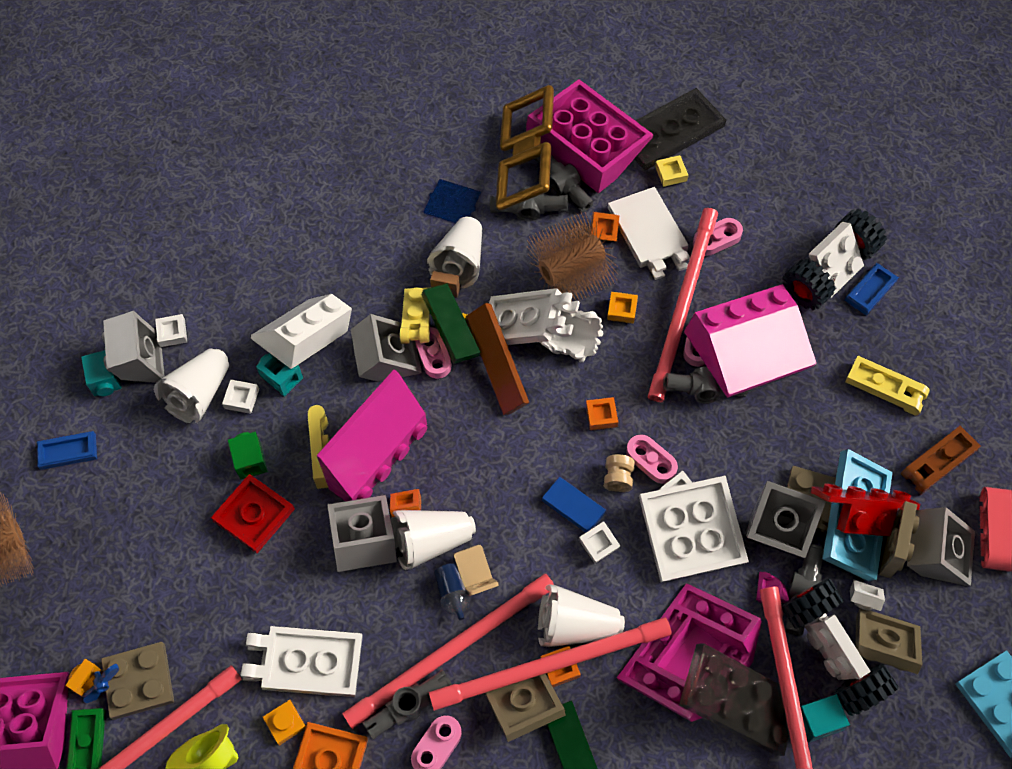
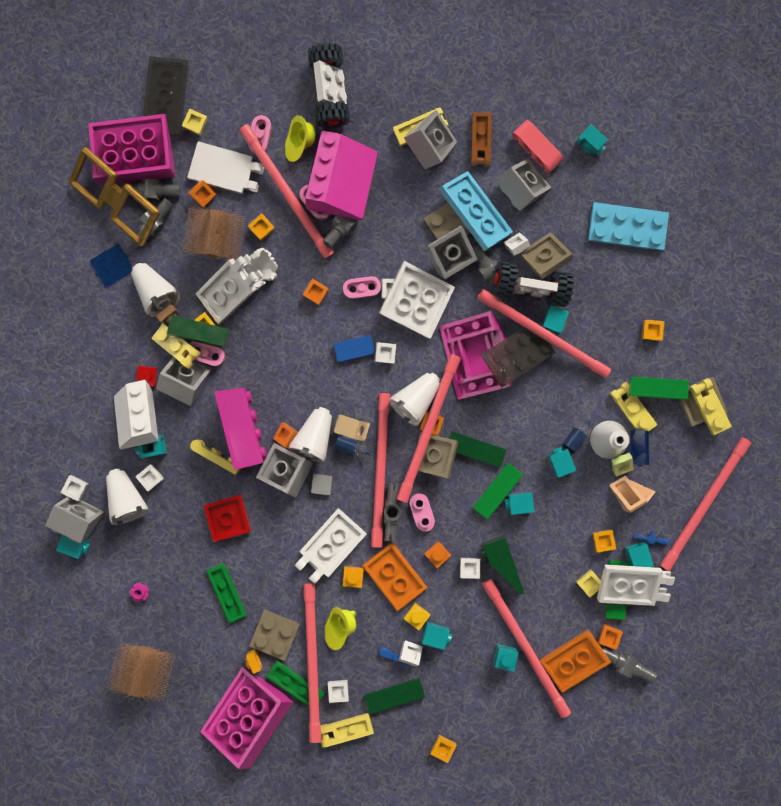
camera: 60 degrees left, 25 degrees up
(66, 450) = (108, 592): blue tile -> none
(92, 488) = (139, 597): none -> dark pink plate
(100, 683) = (263, 655): blue piece -> none
(155, 582) = (226, 593): none -> green tile
(247, 455) = (190, 498): green brick -> none
(359, 311) = (148, 374): none -> red plate
(377, 592) = (321, 484): none -> light grey tile
(497, 359) = (239, 322): dark orange tile -> none
(619, 473) = (356, 311): tan wheel -> none
(755, 274) = (300, 137): none -> neon yellow piece
(767, 580) = (475, 286): dark pink tile -> none
(864, 511) = (478, 207): red bracket -> none
(871, 289) = (359, 79): blue tile -> none
(885, 401) = (430, 140): none -> light grey slope
(898, 545) = (510, 210): dark tan plate -> none

